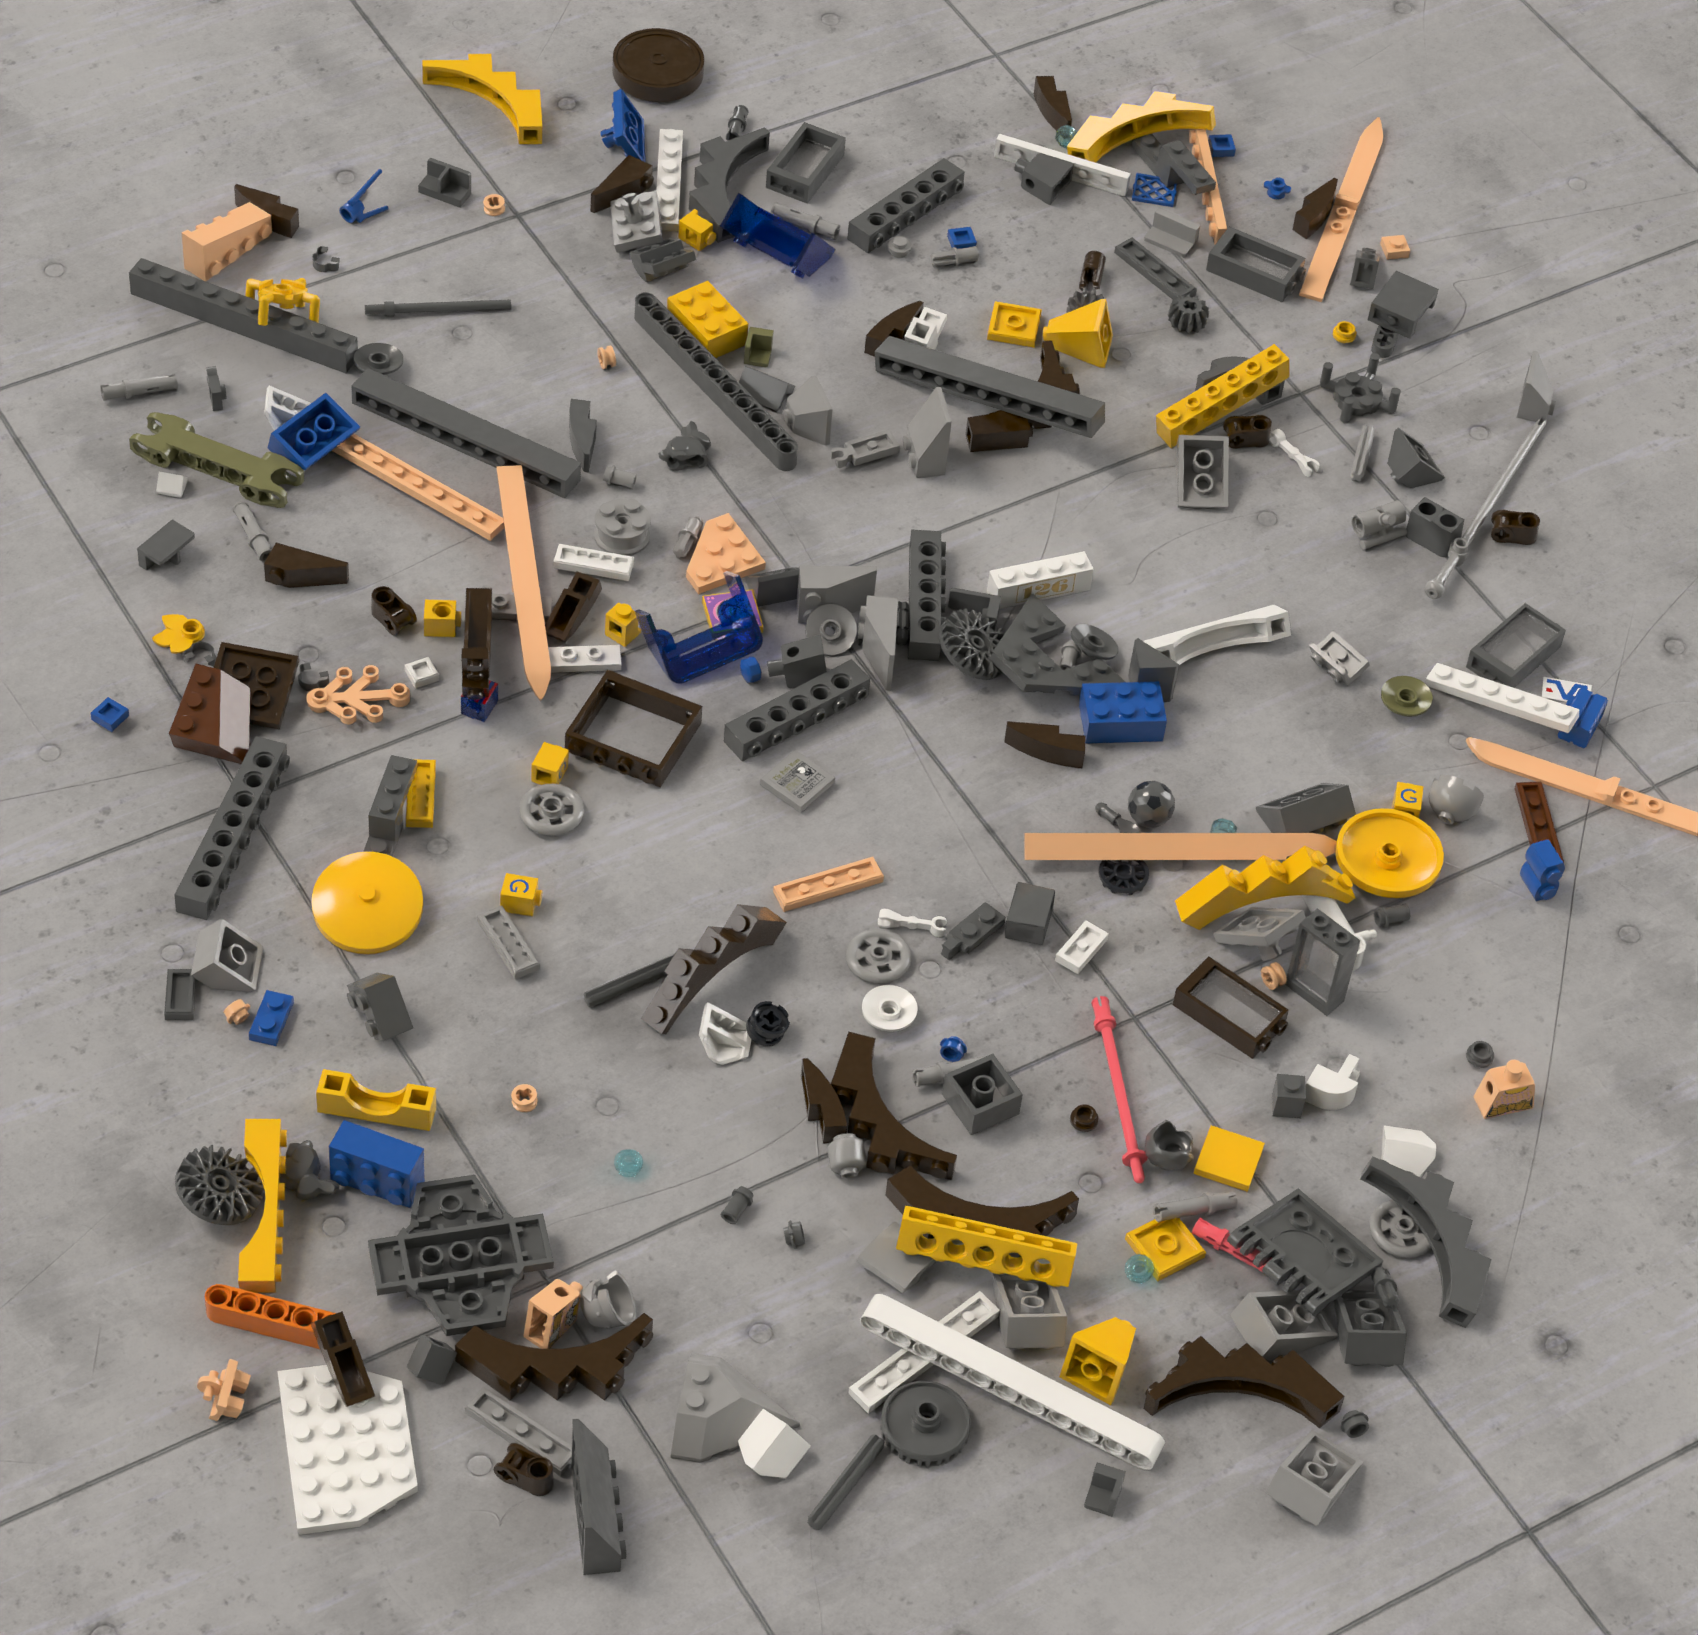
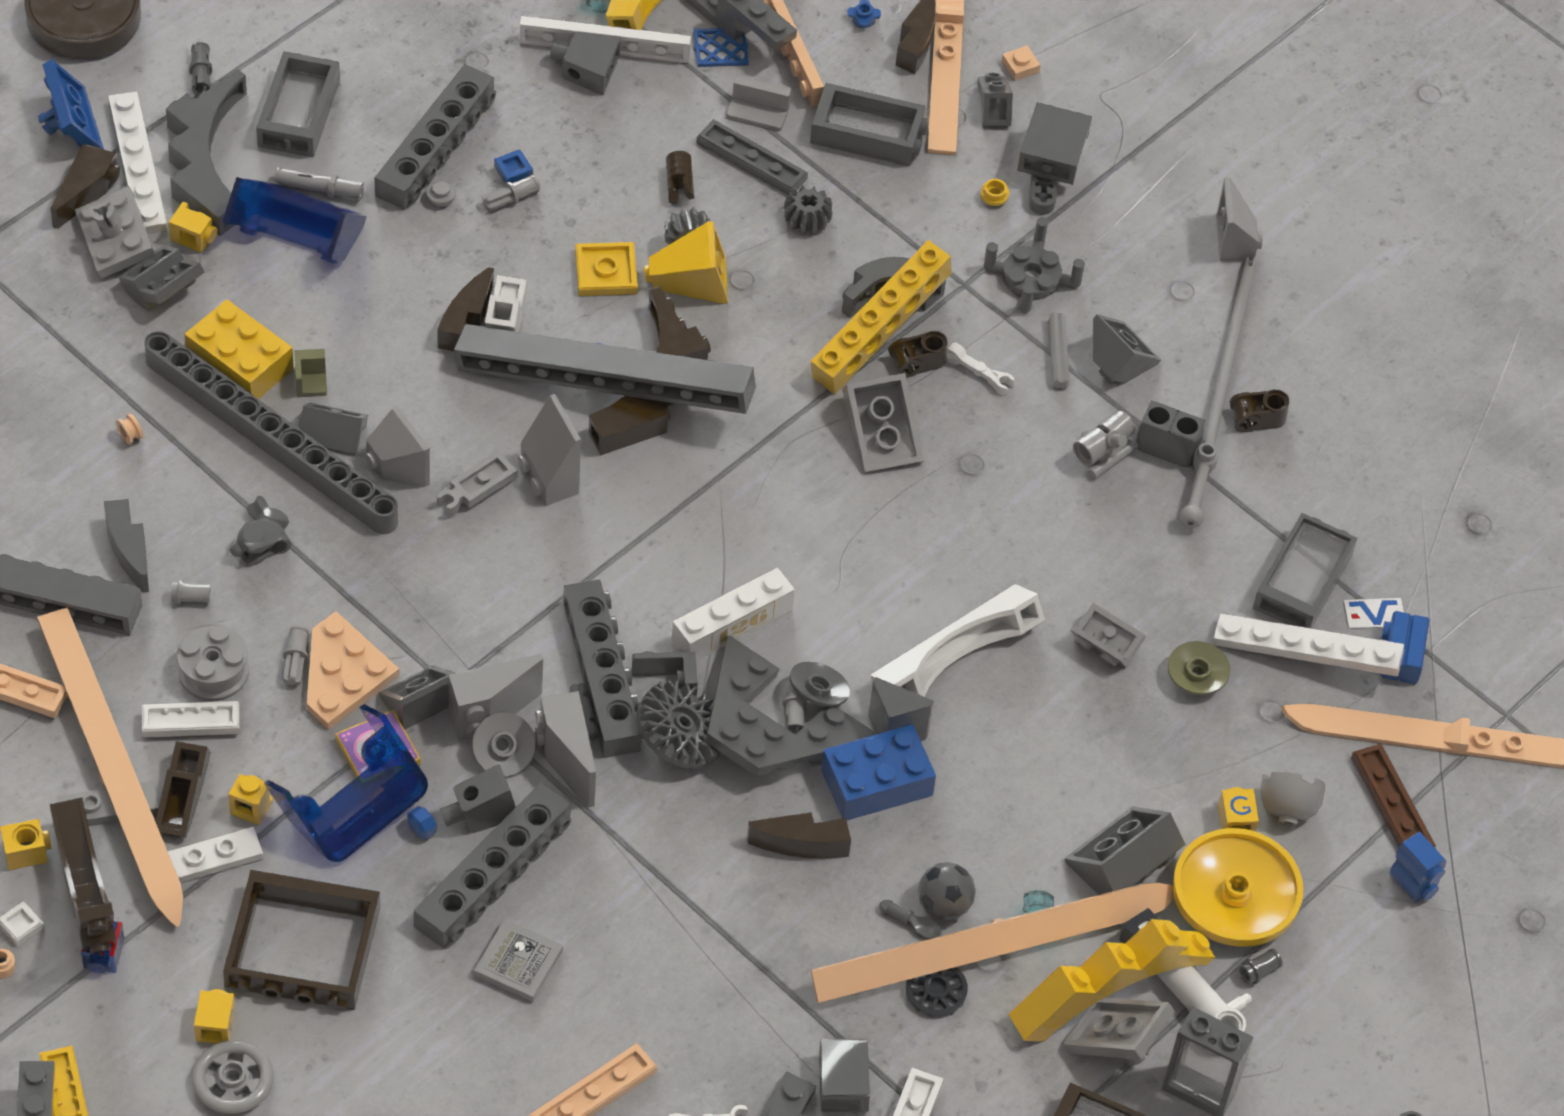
camera: 15 degrees left, 5 degrees up
(1273, 975) = (1148, 1085): light nougat bush -> none

